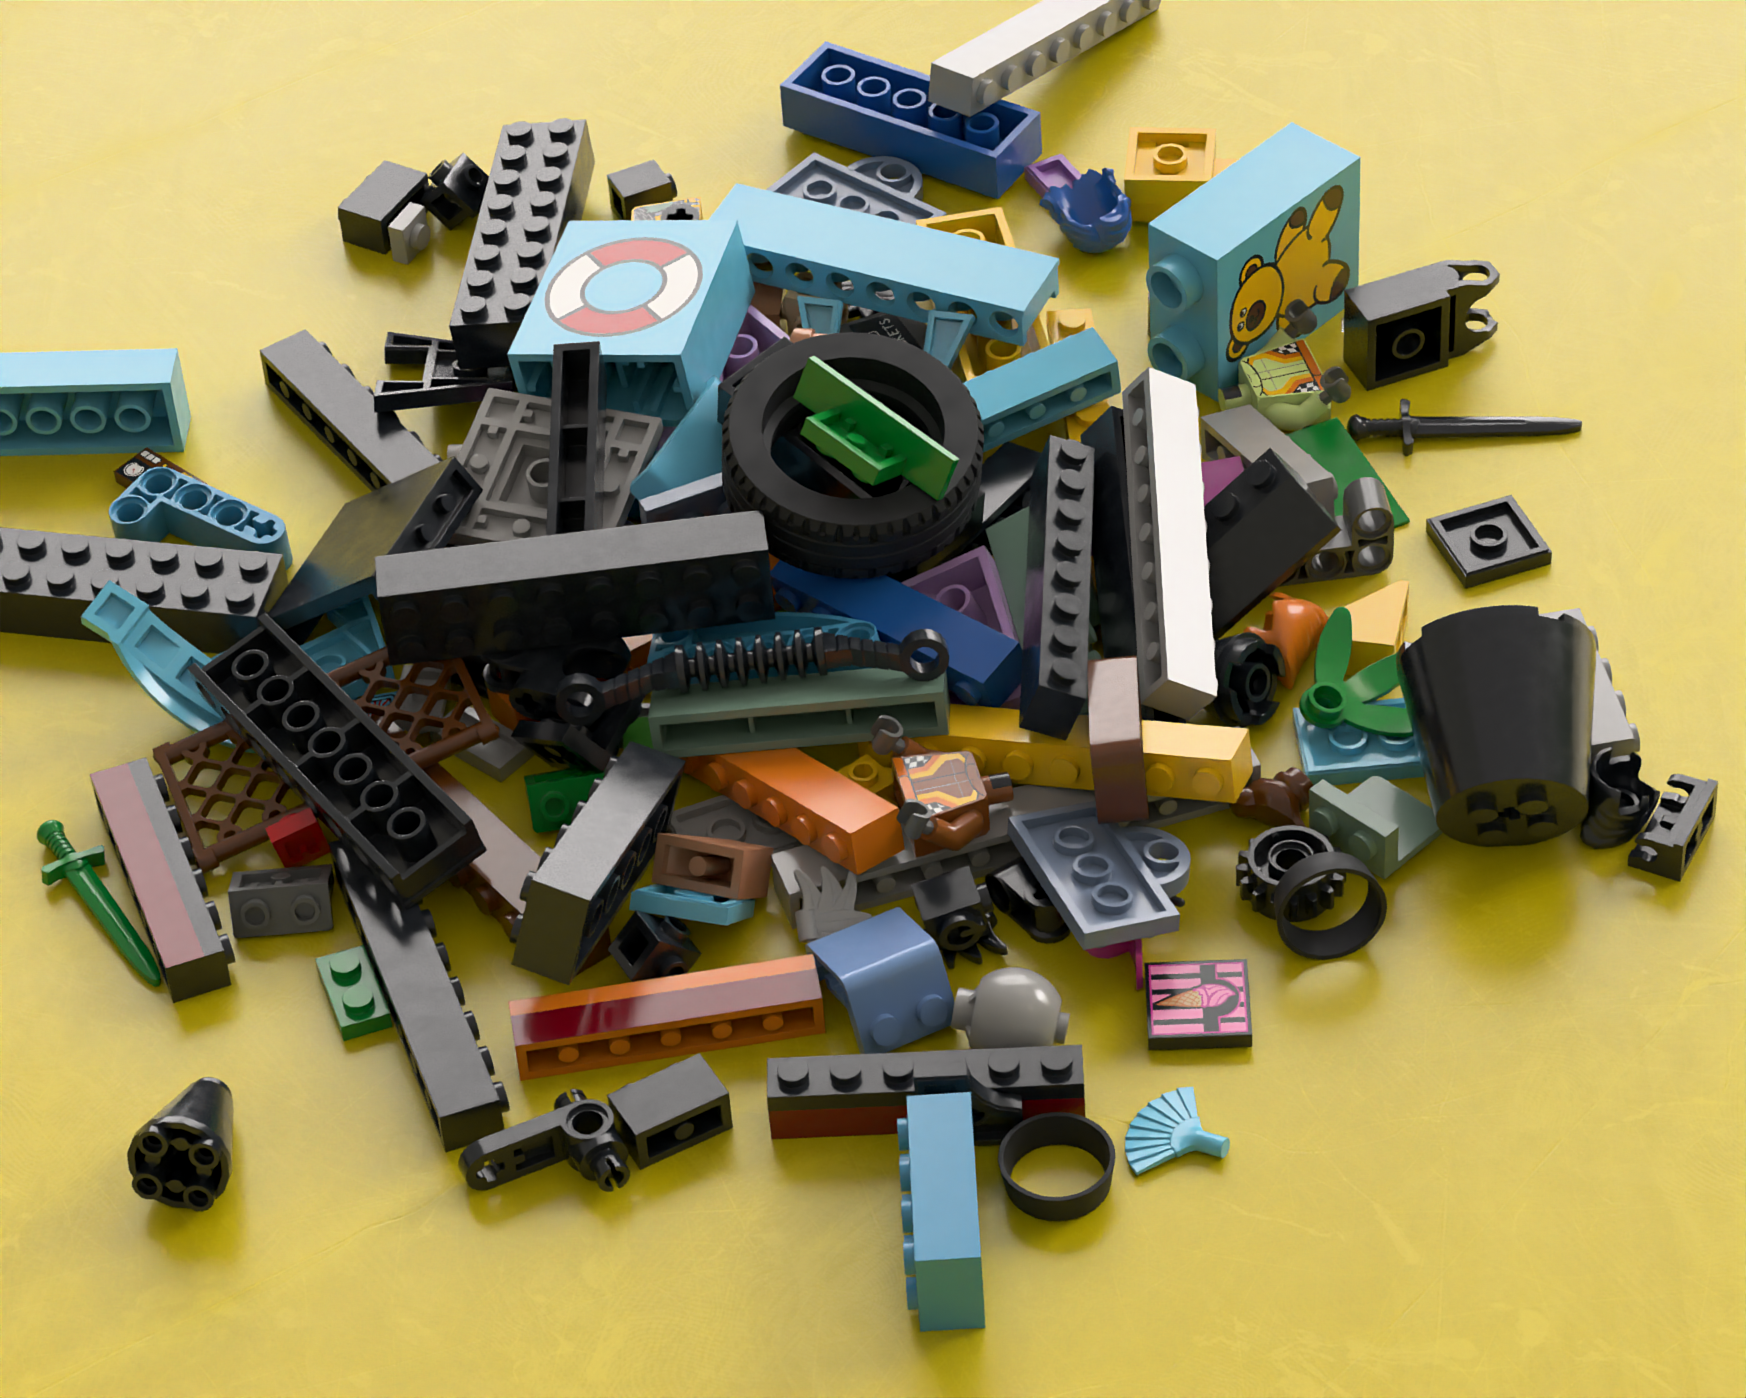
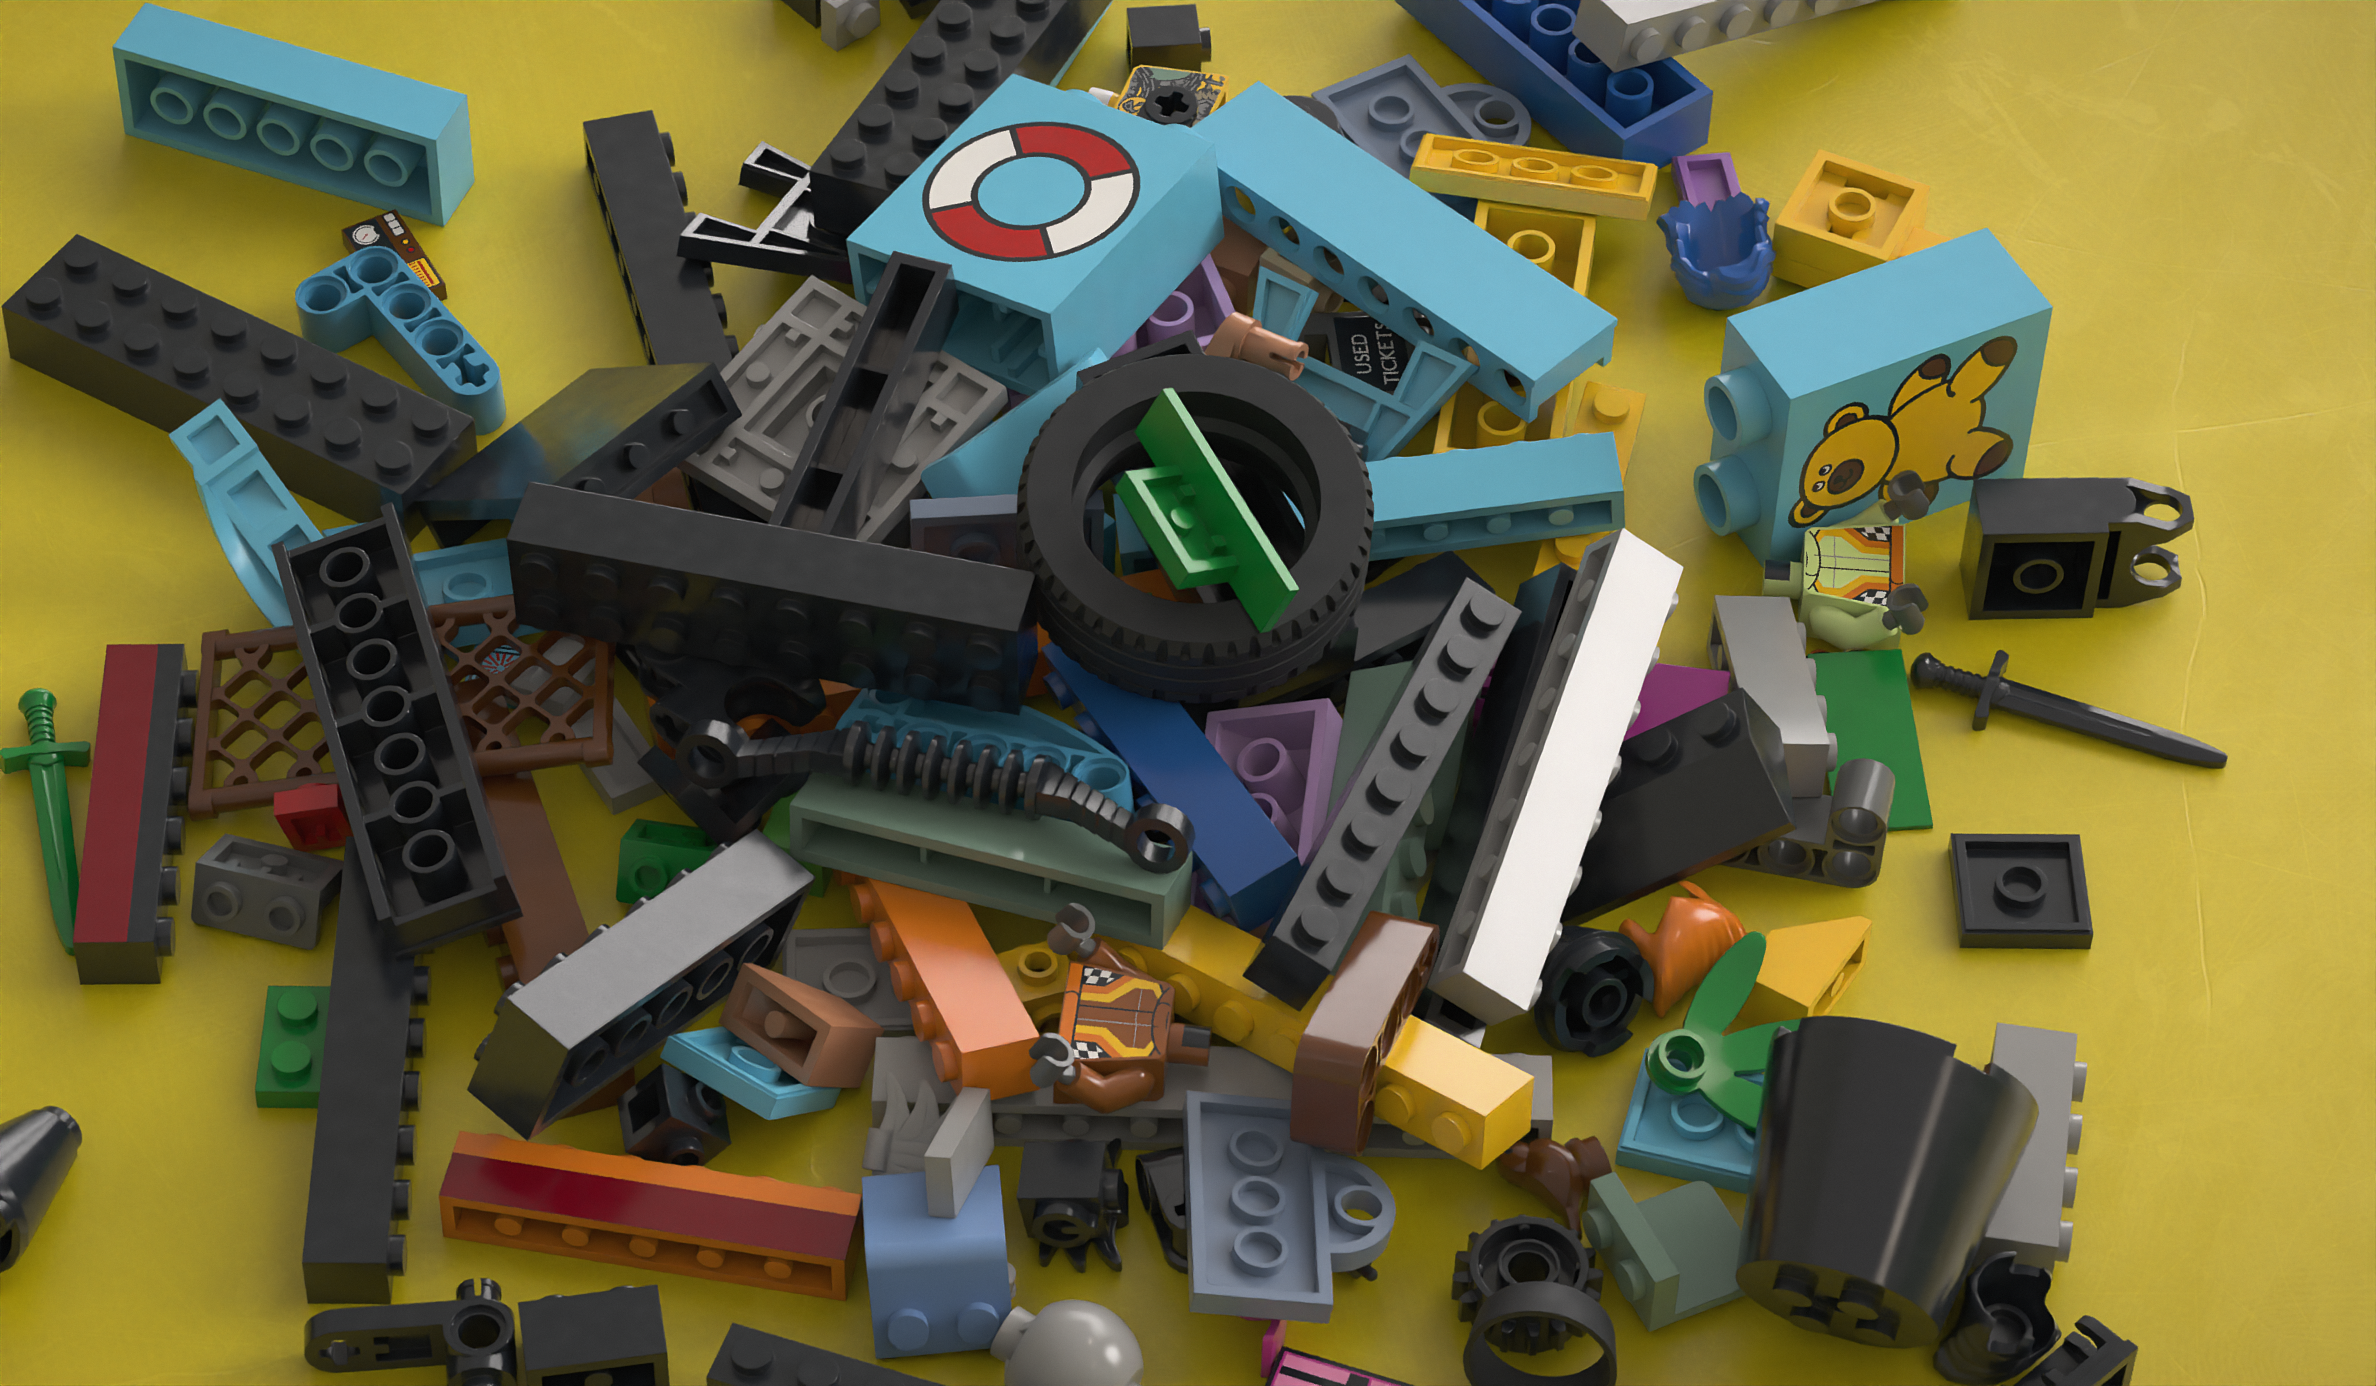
camera: 15 degrees right, 5 degrees up
(873, 901) = (959, 1152): none -> light grey tile
(949, 197) = (1534, 176): none -> yellow tile

